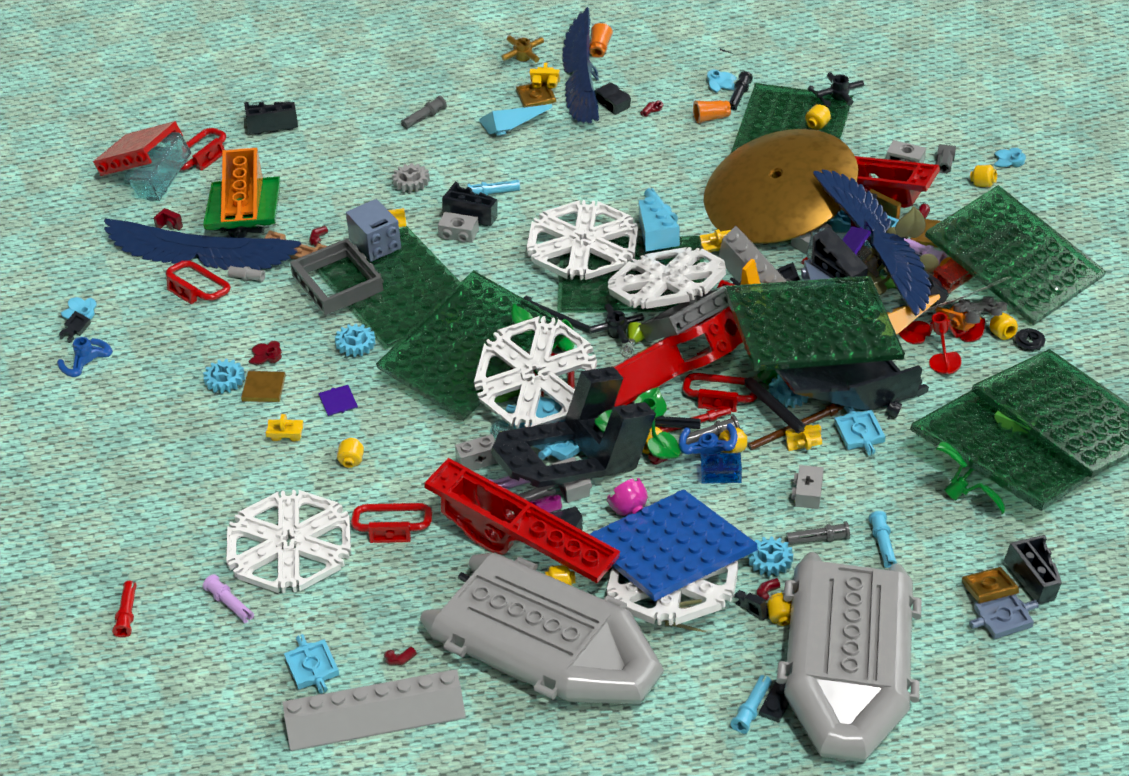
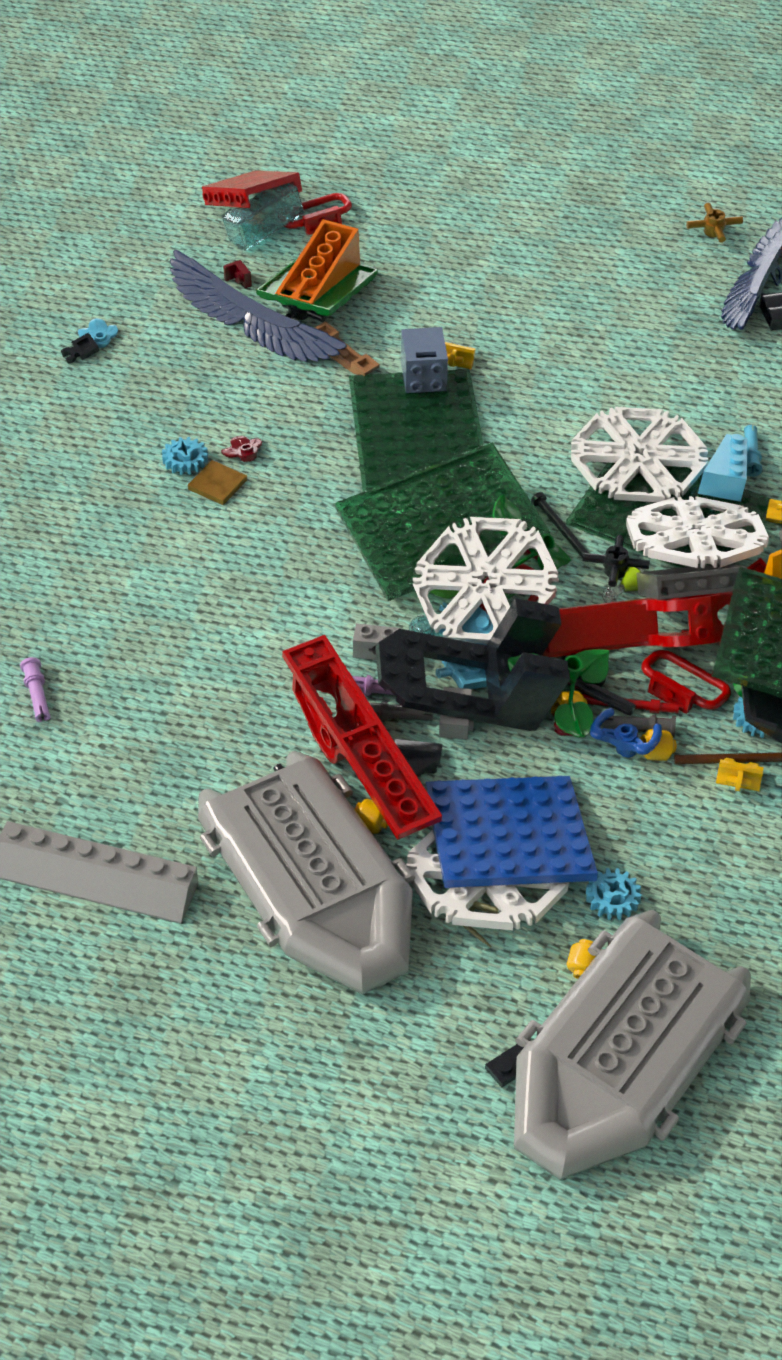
camera: 25 degrees right, 5 degrees up
(84, 354) = (71, 379): blue piece -> none
(189, 292) = (209, 354): red bar -> none
(246, 273) = (278, 358): light grey pin -> none
(270, 117) = (406, 203): black wedge -> none
(275, 537) = (143, 664): white plate -> none
(284, 428) = (204, 534): yellow hips -> none
(311, 664) = (68, 794): medium azure plate -> none
(316, 233) = (373, 342): dark red arm -> none
(330, 254) = (355, 371): dark grey window -> none
(338, 400) = (280, 526): dark purple piece -> none
(349, 452) = (252, 587): yellow head -> none
(355, 340) = (336, 470): medium azure gear -> none
(391, 531) = (241, 690): red bar -> none
(399, 659) = (156, 828): dark red arm -> none
(410, 177) = (507, 319): light grey gear -> none
(429, 108) = (574, 253): dark grey pin -> none
(458, 227) = (520, 390): light grey brick -> none
(465, 202) = (544, 371): black wedge -> none
(498, 187) = (576, 360): medium azure pin -> none
(504, 120) = (642, 293): medium azure wedge -> none
(535, 96) = (699, 277): pearl gold tile -> none
(545, 74) = (718, 258): yellow hips -> none
(549, 503) = (409, 728): magenta beam -> none
(628, 497) = (500, 759): dark pink cylinder -> none
(721, 468) = (624, 770): clear blue brick -> none
(748, 710) = (474, 1057): medium azure pin -> none
(754, 604) = (559, 941): black plate -> none
(767, 586) = (586, 926): dark red arm -> none
(775, 405) = (727, 724): black axle -> none
(793, 537) = (696, 896): dark grey pin -> none
(809, 487) = (707, 833): light grey brick -> none
(881, 532) = (757, 923): medium azure pin -> none

